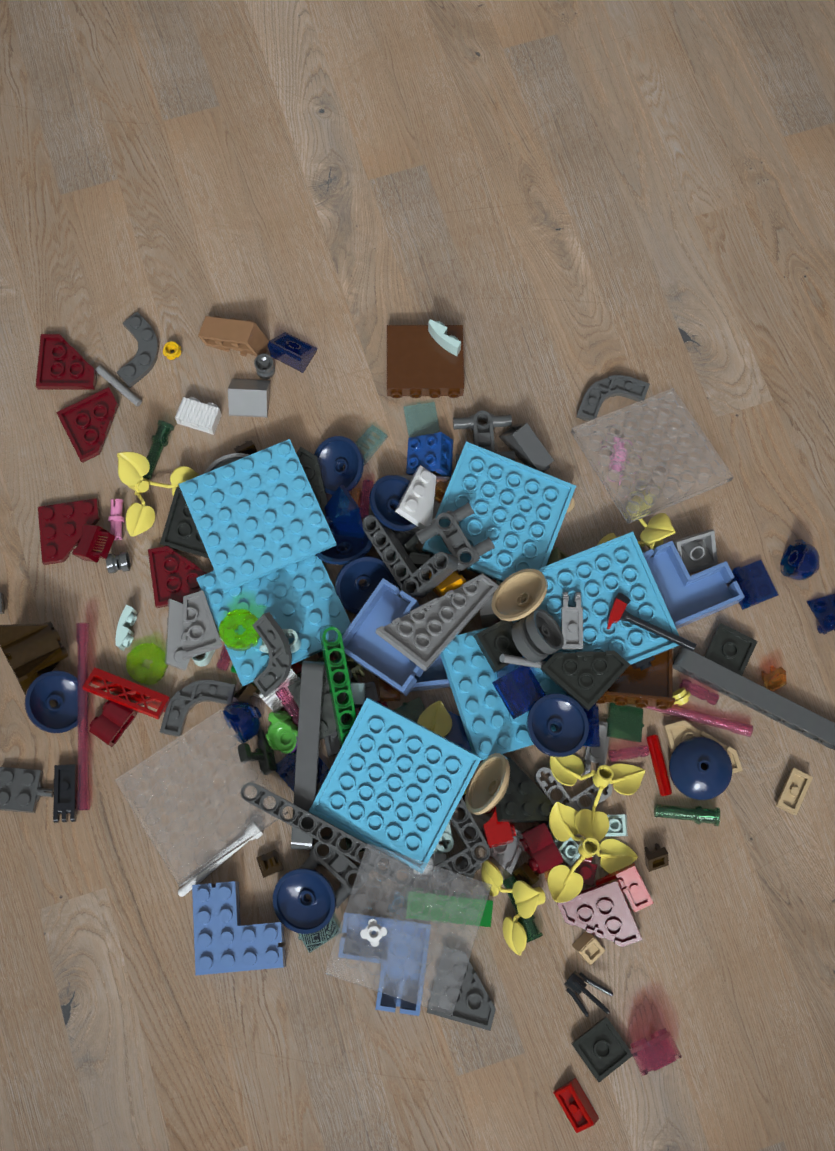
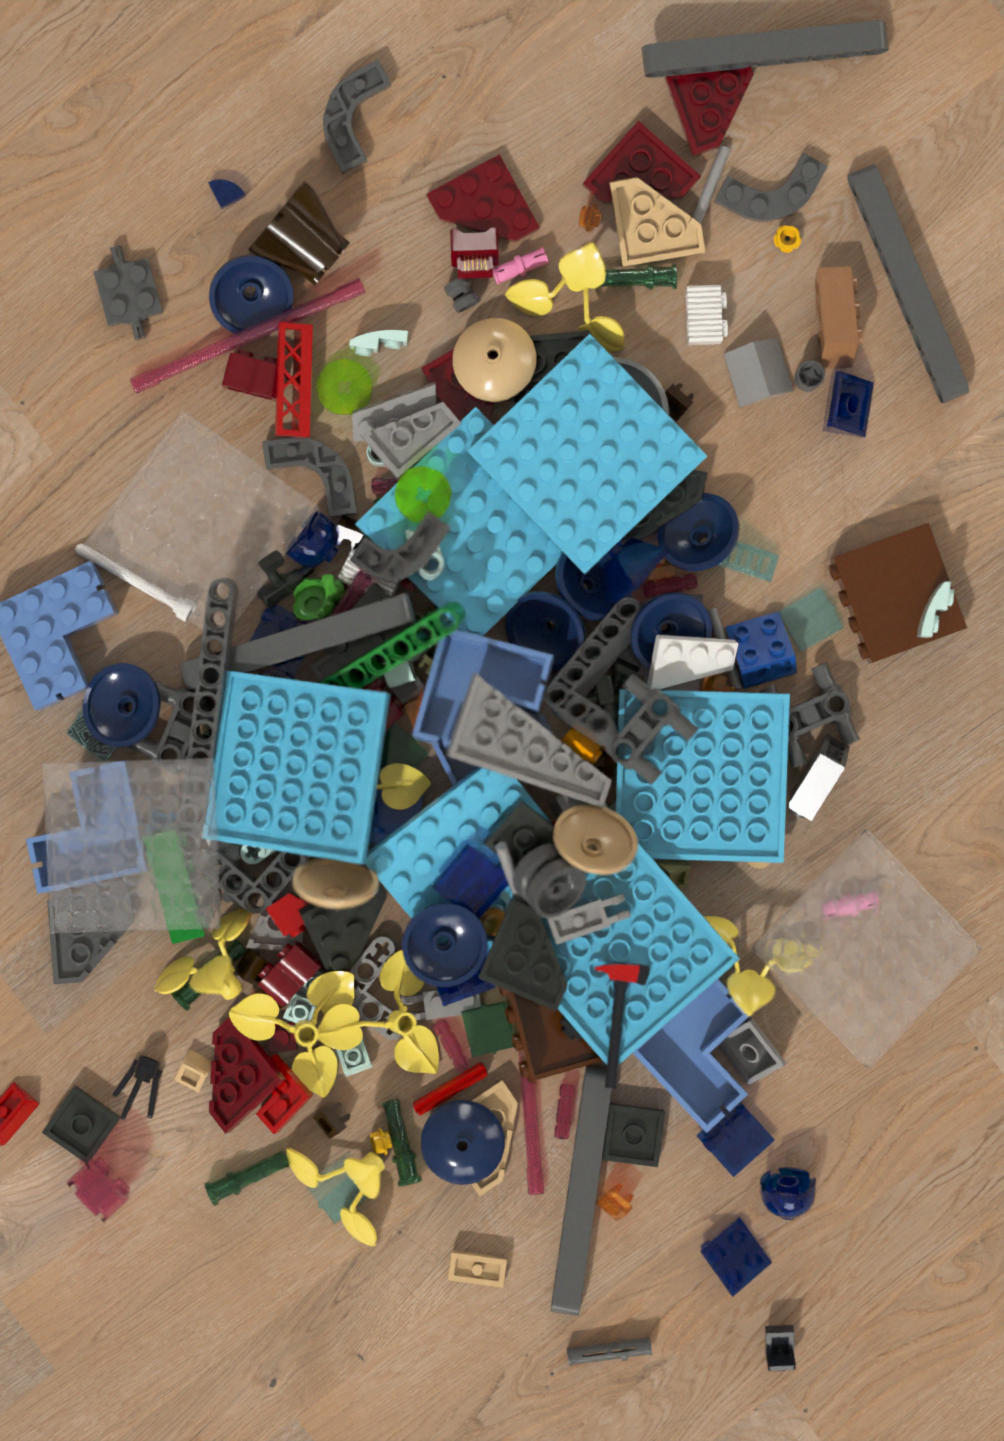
camera: 75 degrees right, 15 degrees up
(45, 322) = (765, 48): none -> dark grey beam
(65, 792) = (146, 354): black hinge -> none
(104, 464) = (589, 217): none -> clear orange plate
(125, 427) = (651, 225): none -> tan plate
(178, 563) = (496, 378): none -> tan dish
(231, 289) = (908, 283): none -> dark grey beam
(269, 863) = (153, 644): dark brown tile -> none
(367, 932) = (116, 805): white plate -> none
(551, 687) = (492, 920): none -> clear orange plate
(609, 387) = (951, 860): dark grey plate -> none
(680, 946) = (235, 1182): none -> clear green pin
(681, 696) = (547, 1089): light yellow plate -> none
(682, 828) = (380, 1142): none -> yellow plate
(703, 843) = (363, 1173): none -> light yellow plant
(708, 871) = (336, 1193): none -> clear light blue piece

